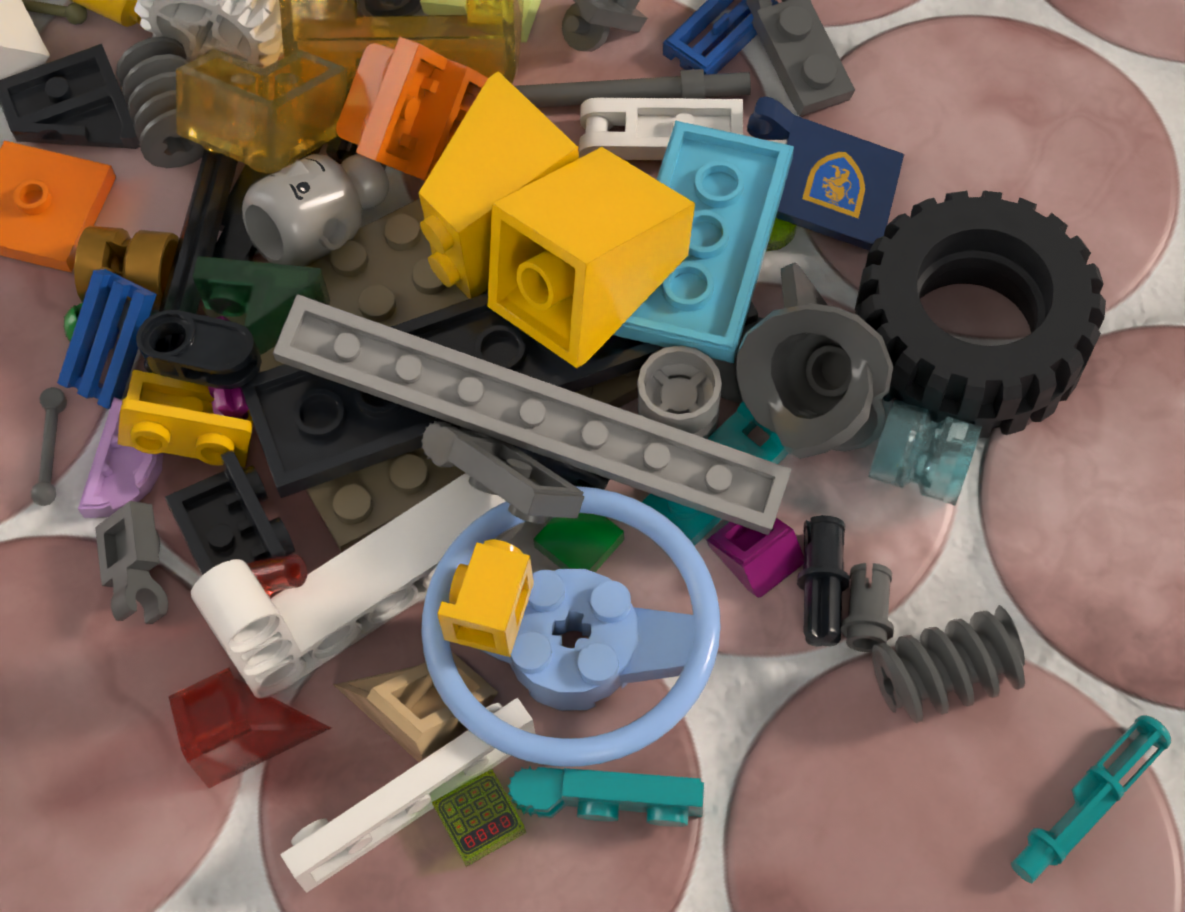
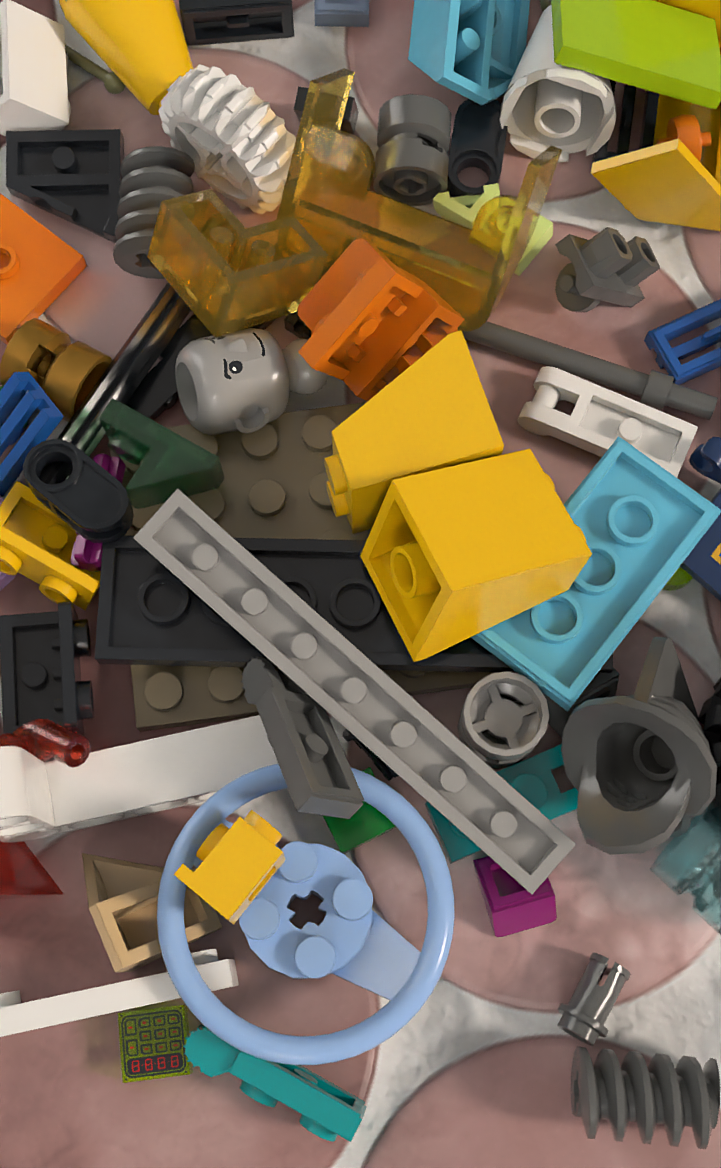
camera: 20 degrees right, 10 degrees up
(823, 579) = (562, 953): black axle -> none

